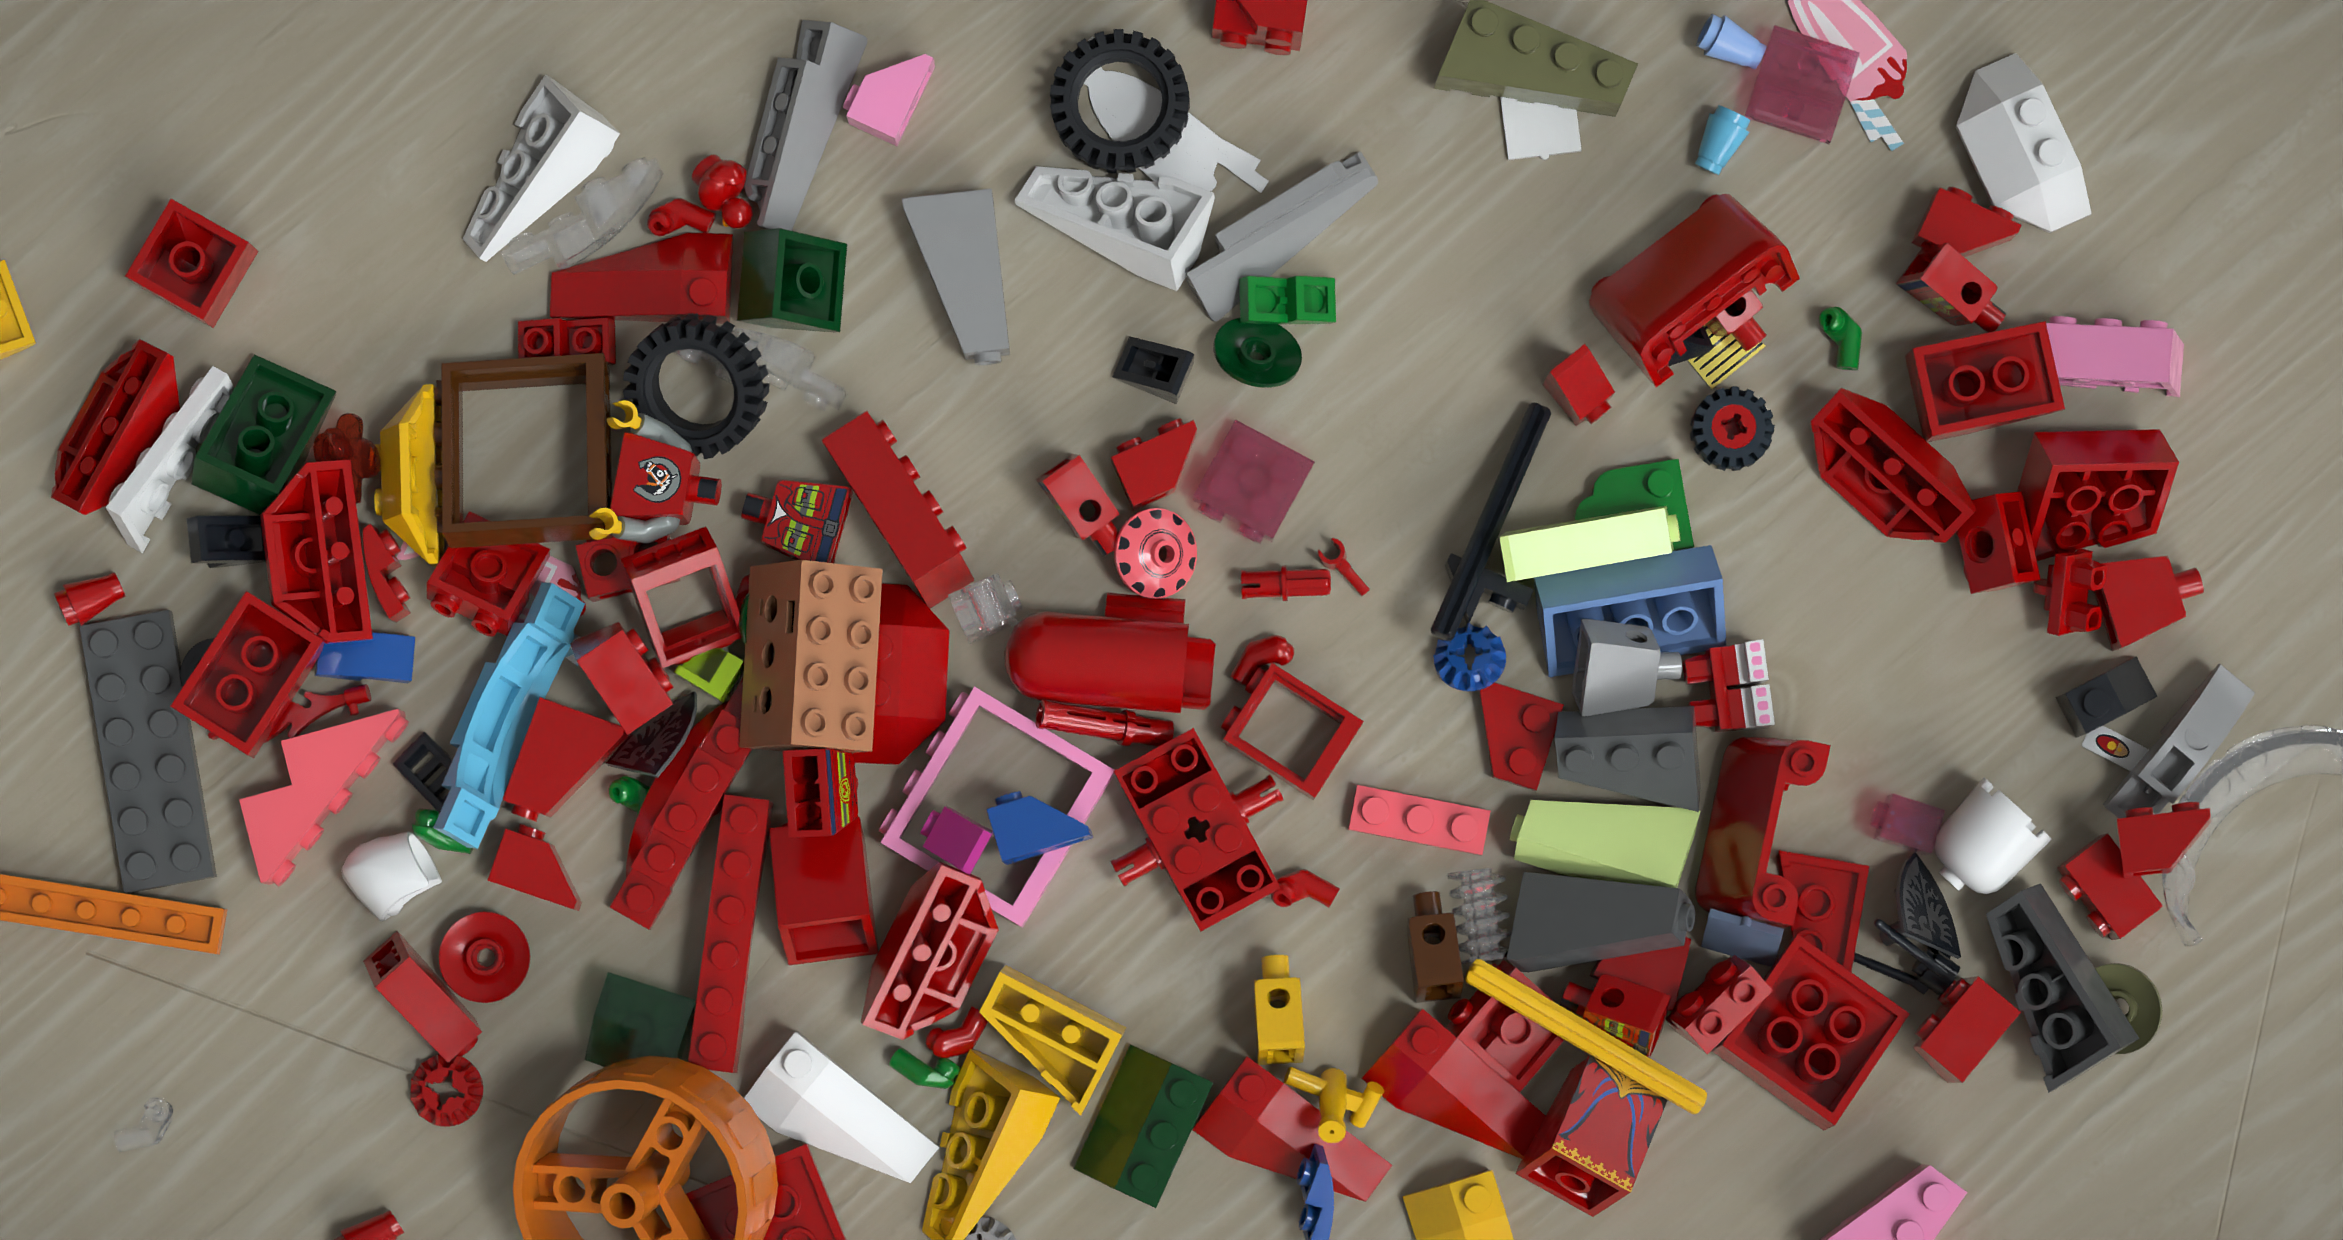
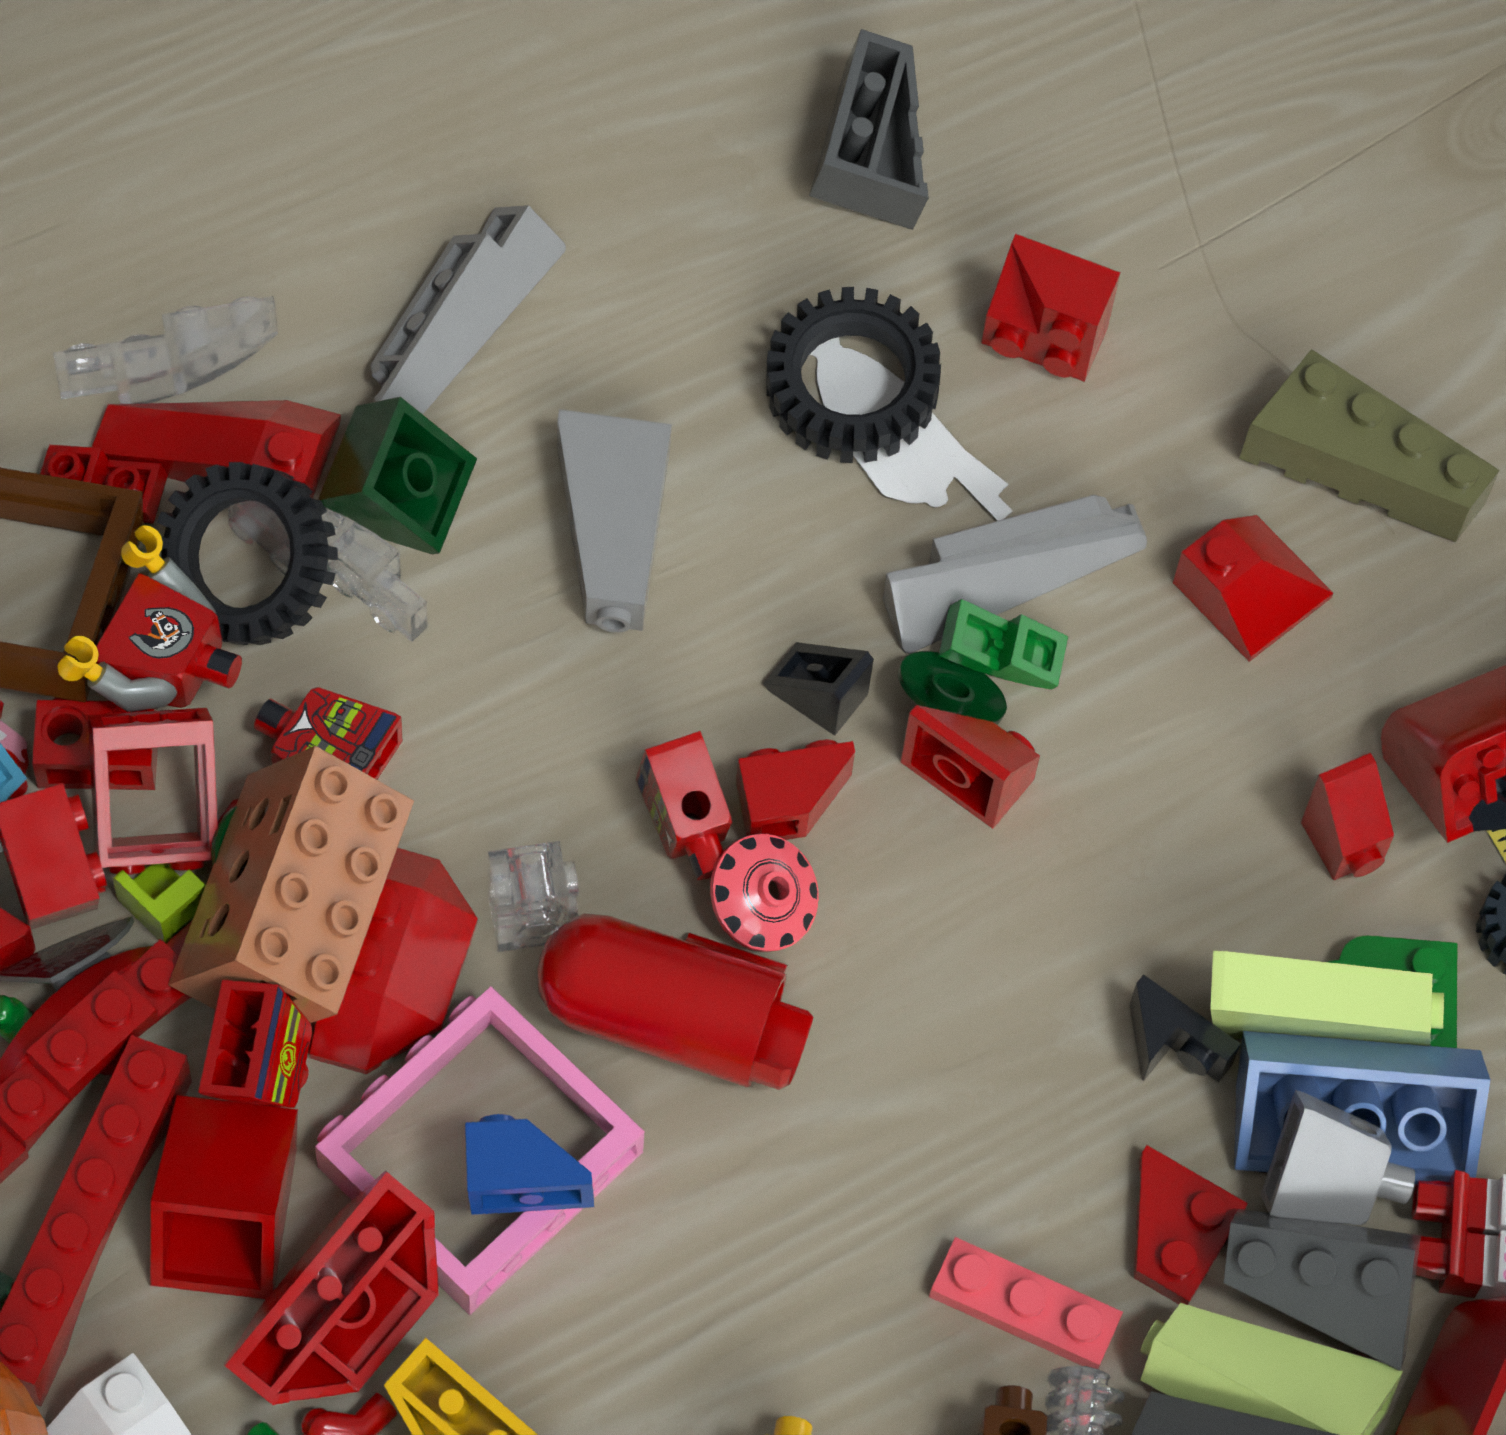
camera: 10 degrees right, 20 degrees down
(553, 153) = (163, 262): white wedge -> none
(678, 214) = (282, 376): red arm -> none
(718, 189) = (342, 356): red animal -> none
(889, 98) = (575, 307): bright pink slope -> none
(898, 507) = (454, 756): red wedge -> none
(955, 838) = (419, 1152): dark pink slope -> none
(1122, 726) = (665, 1086): red pin -> none
(1135, 223) = (835, 515): white wedge -> none
(1182, 785) = (721, 1179): red slope -> none
(1252, 482) = (907, 844): clear pink plate -> none
(1258, 688) = (858, 1083): red window -> none
(1260, 653) = (864, 1047): red arm -> none
(1286, 583) = (921, 970): red axle -> none
(1288, 408) = (969, 760): none -> red slope
(1301, 885) = (852, 1347): red arm -> none
(1344, 567) = (995, 965): red hand -> none
(1466, 197) = (1248, 583): none -> red slope
(1486, 667) = (1157, 1129): blue gear -> none
(1490, 522) = (1197, 954): black axle -> none
(1539, 129) = (1358, 533): white piece -> none

